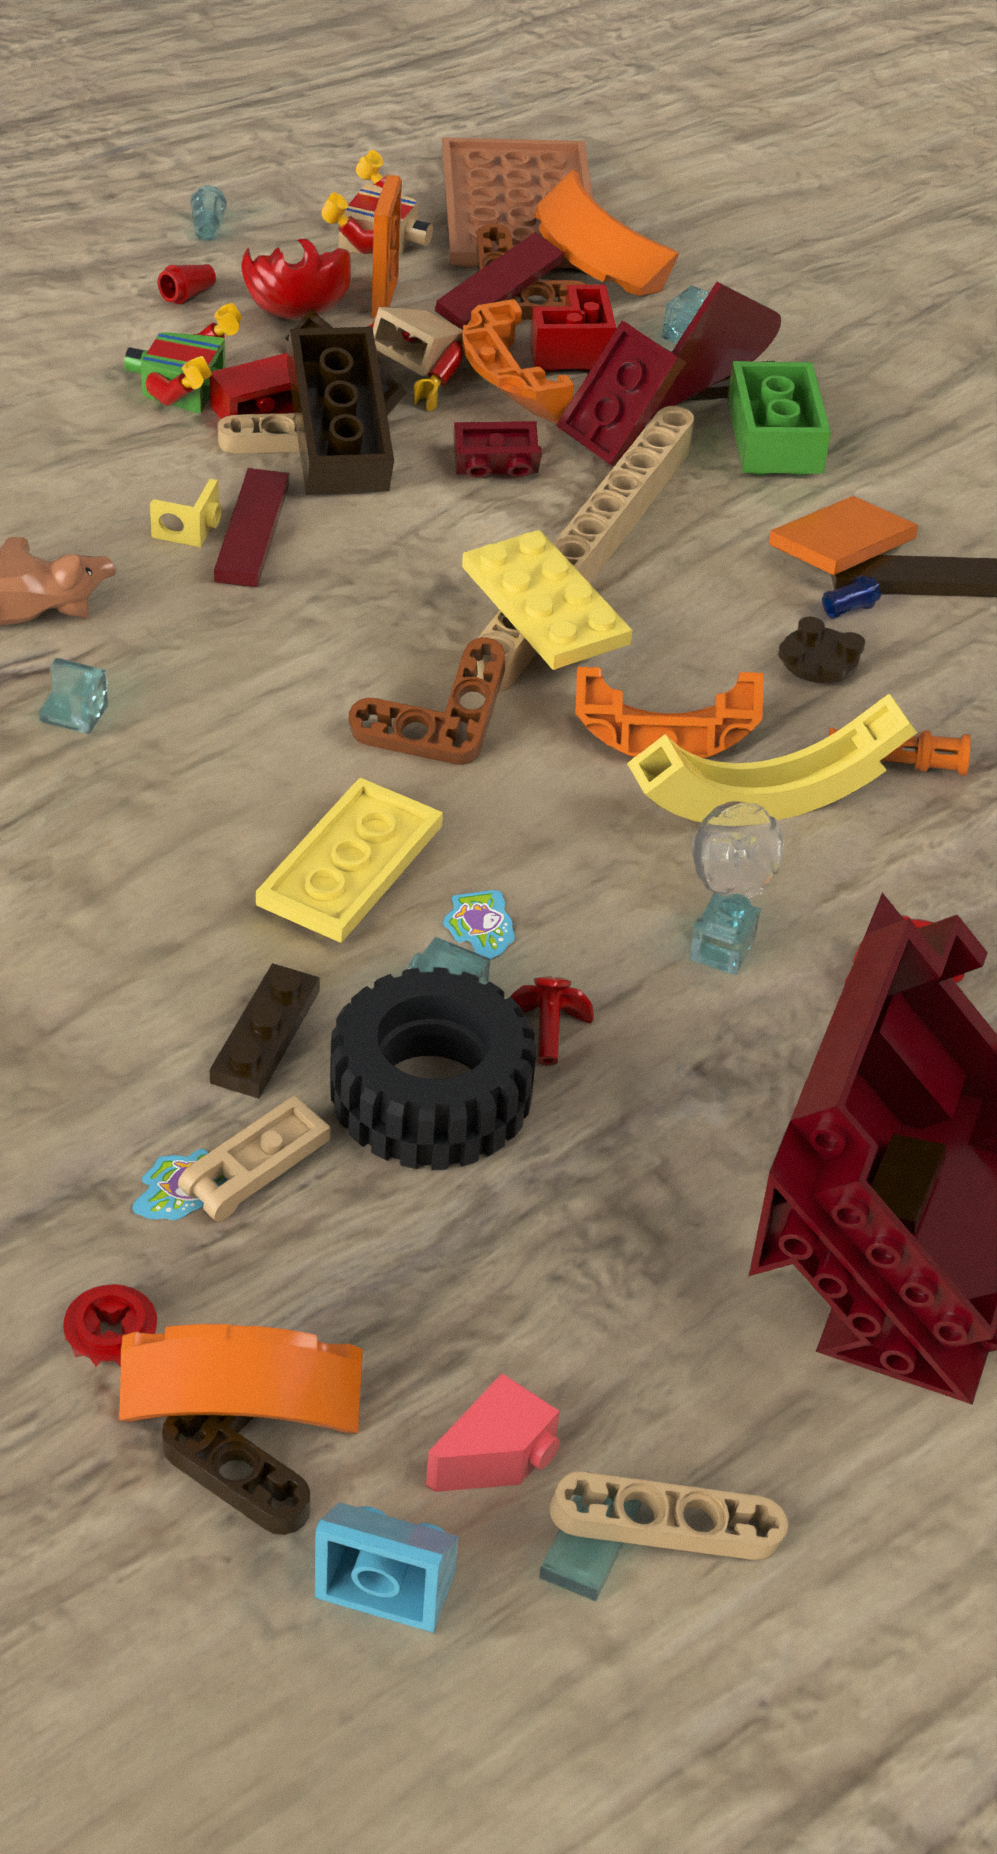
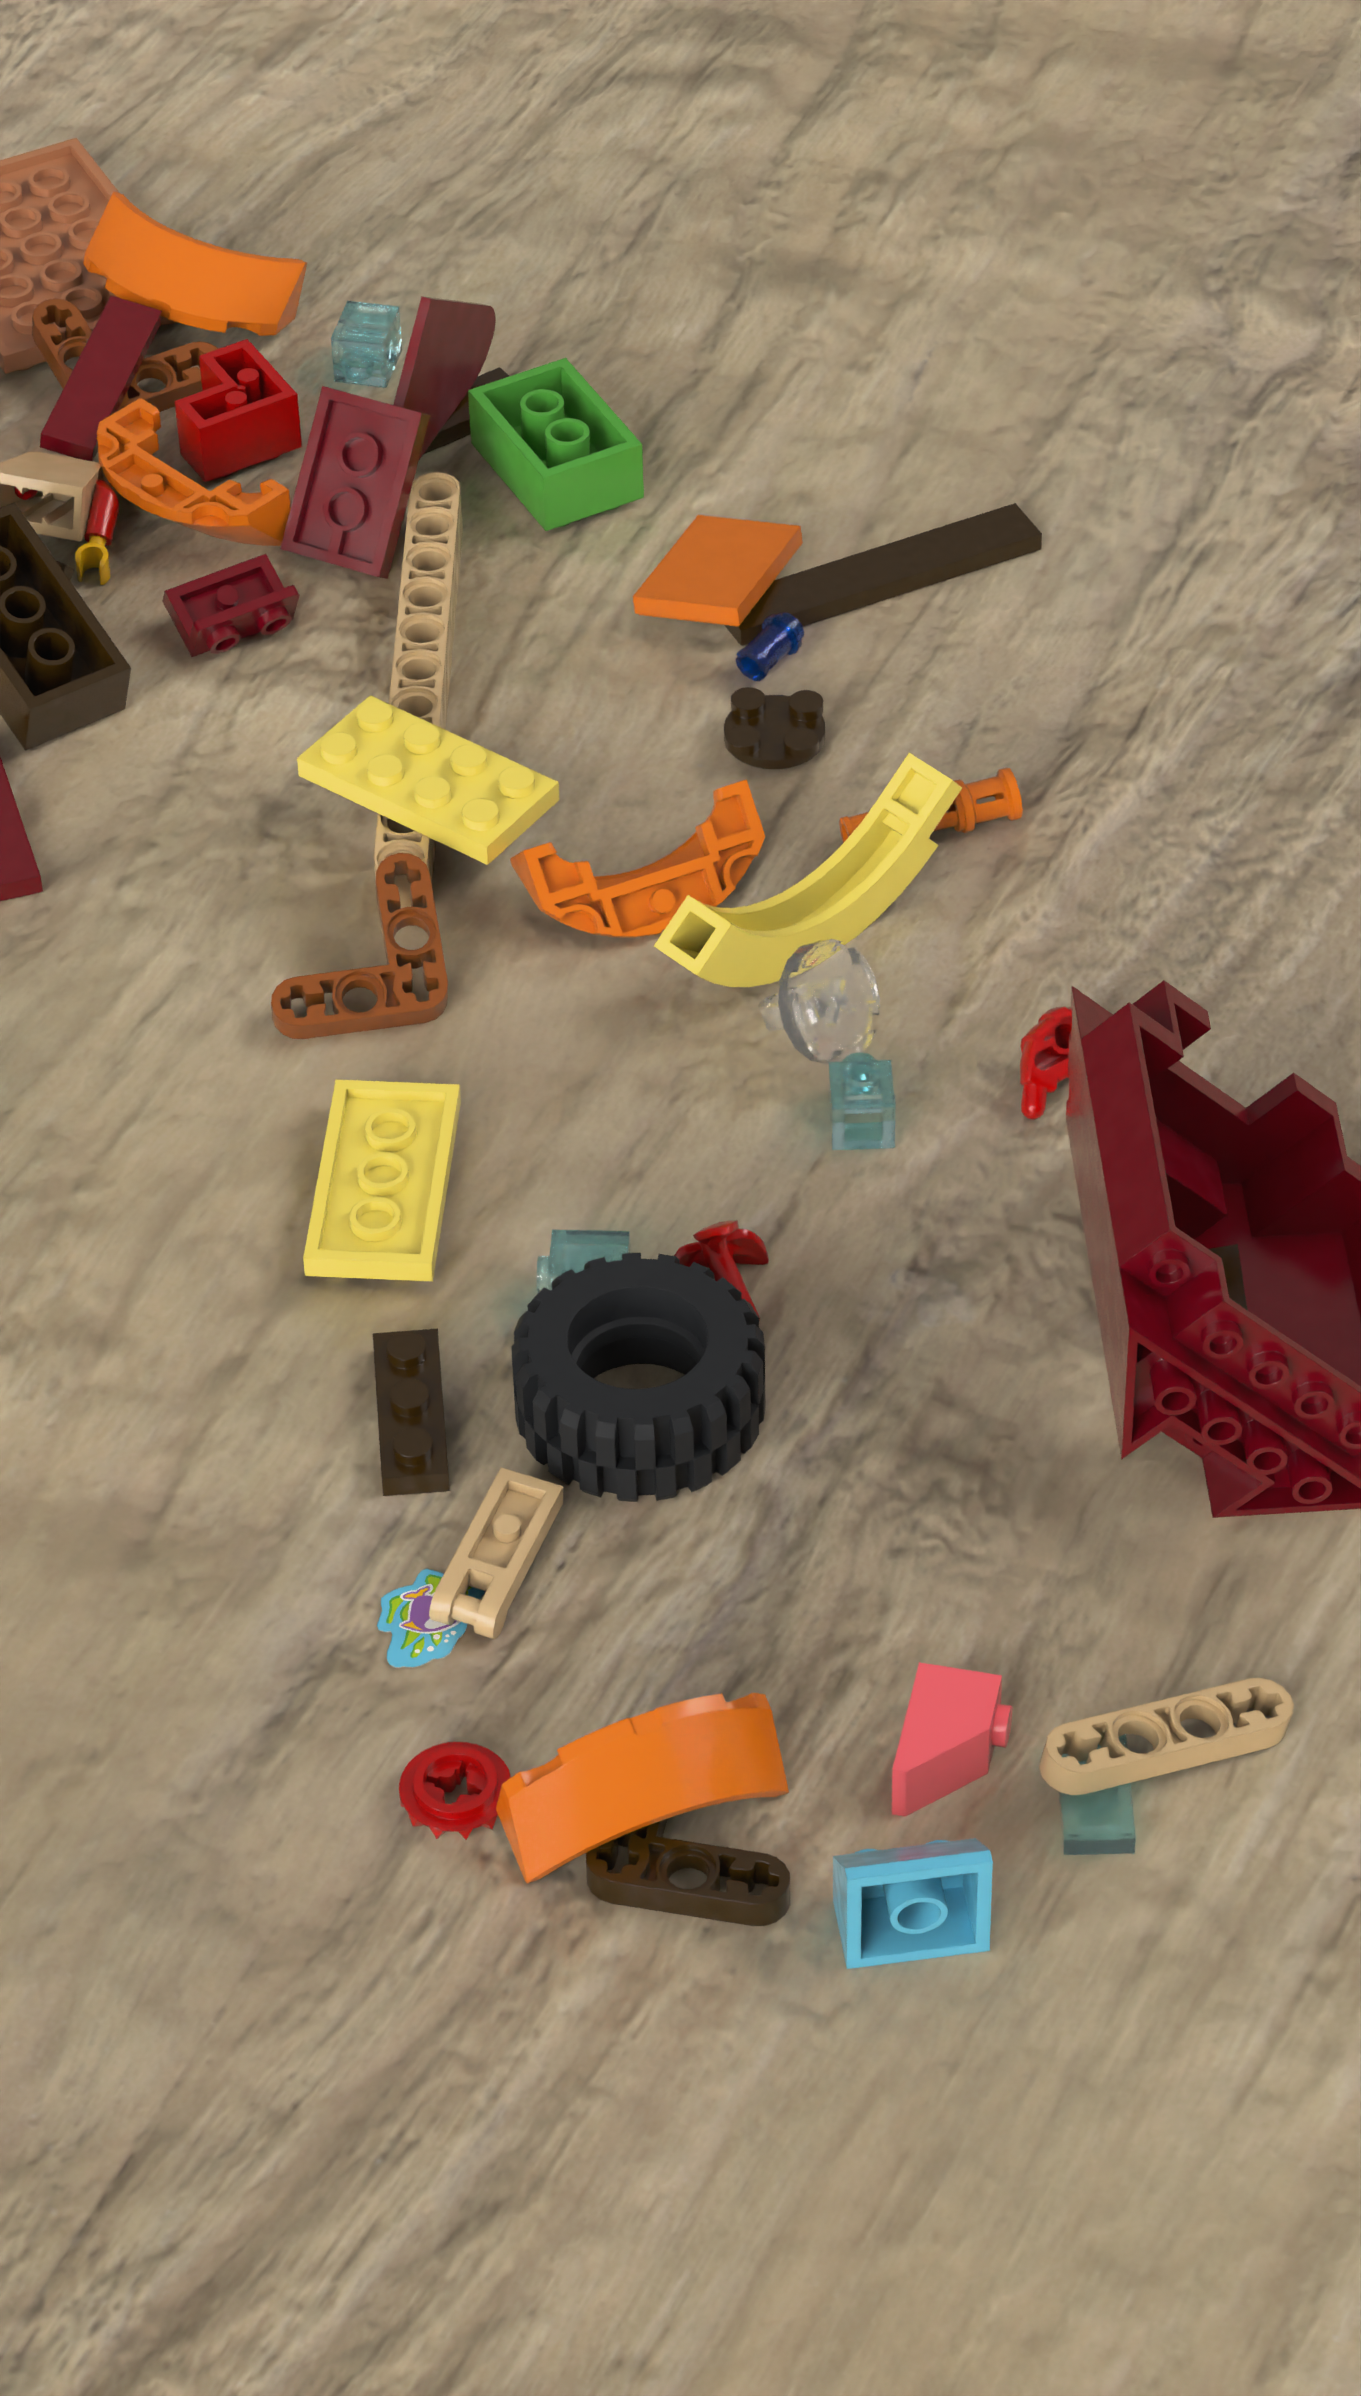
camera: 20 degrees left, 0 degrees up
(481, 921) = (569, 1195): sticker -> none

